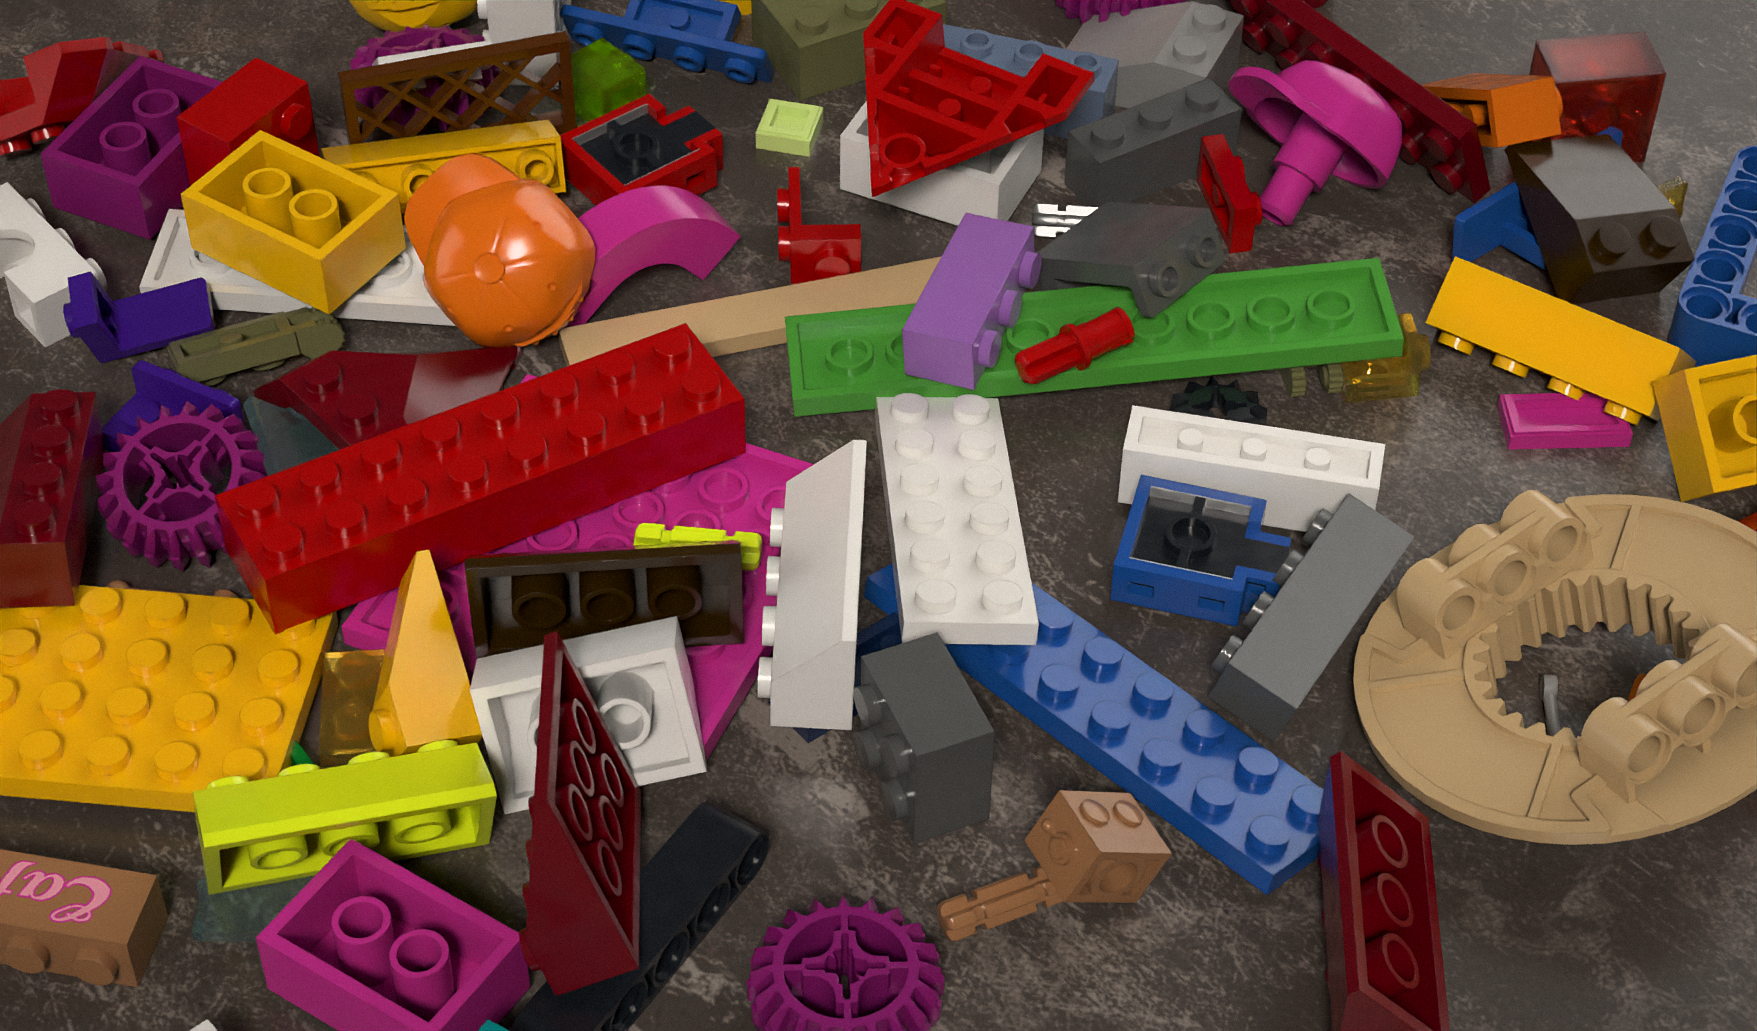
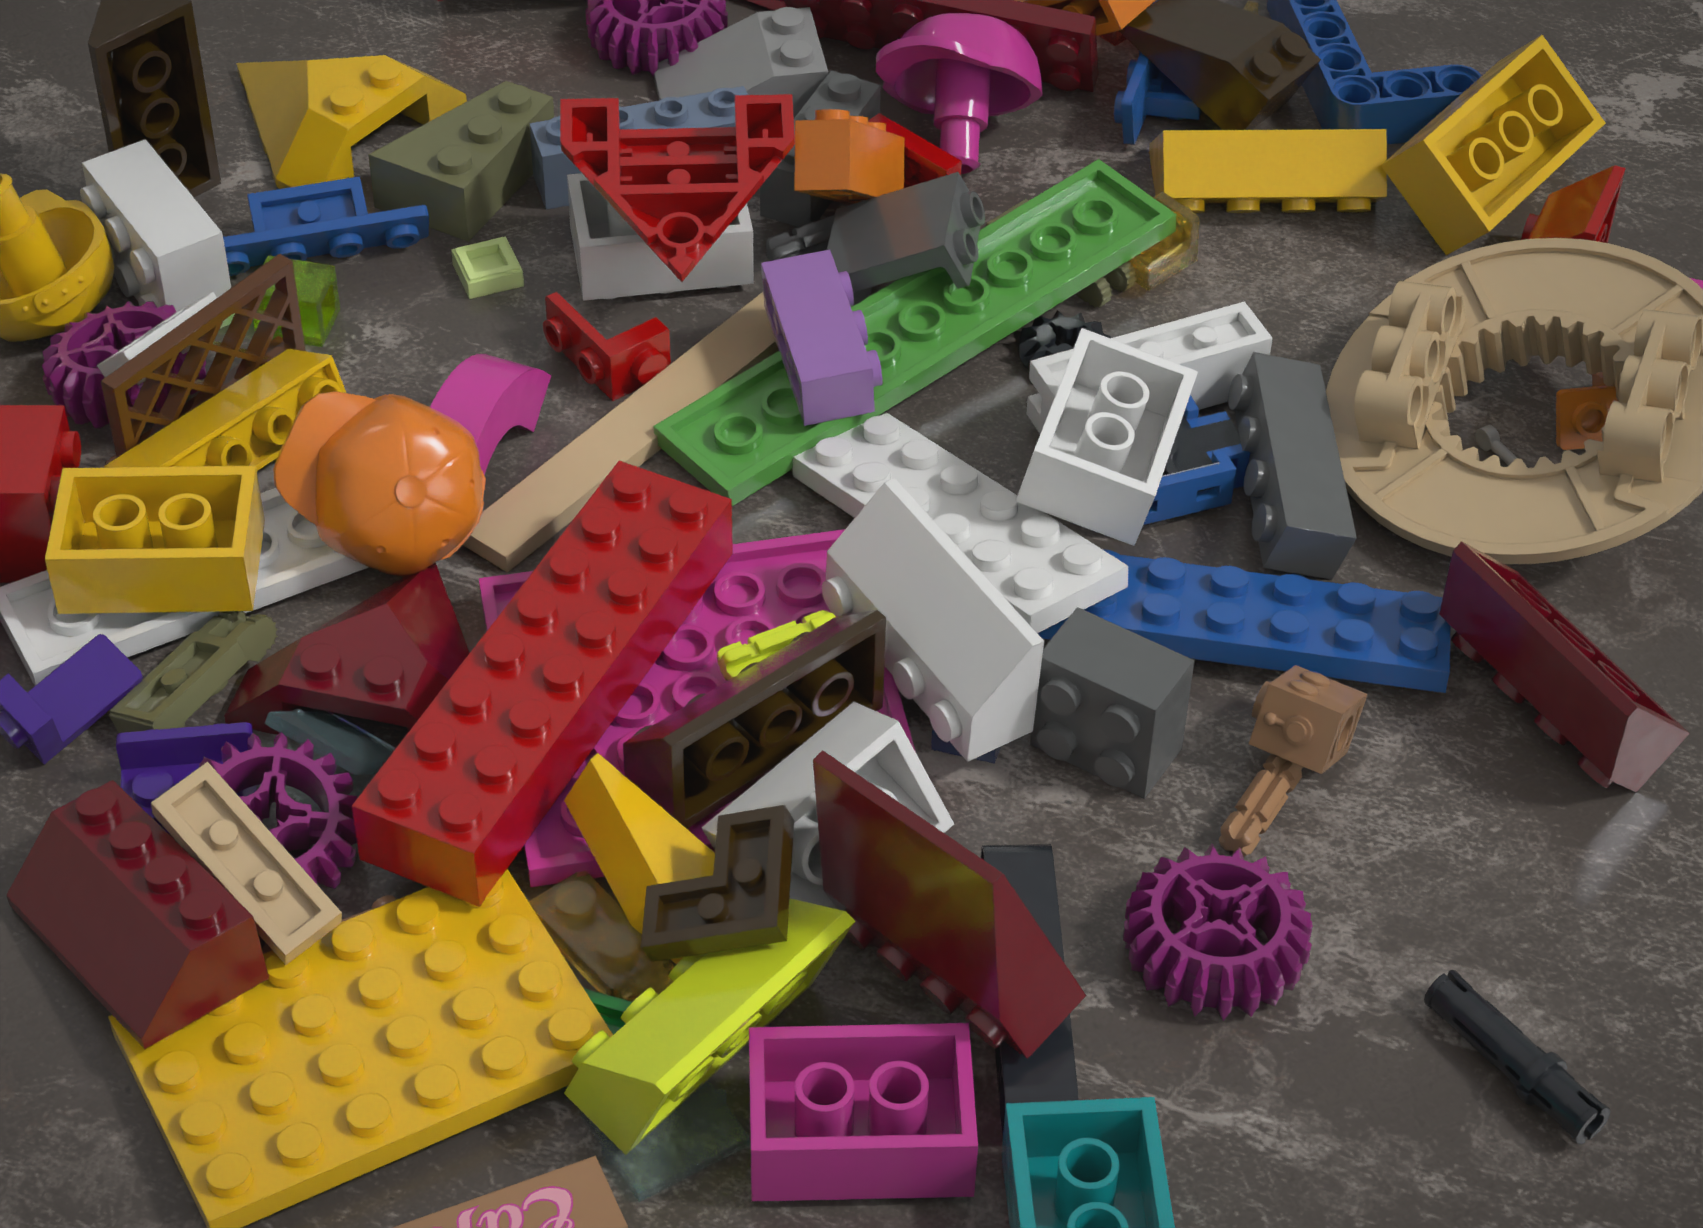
camera: 35 degrees left, 0 degrees up
(117, 504) = (247, 862): none -> tan plate
(420, 728) = (737, 905): none -> dark brown plate
(642, 149) = (399, 343): piece -> none
(1075, 346) = (936, 335): red axle -> none
(1115, 499) = (1107, 437): none -> white brick
(1133, 156) = (846, 157): none -> orange brick
(1560, 422) = (1312, 234): dark pink tile -> none

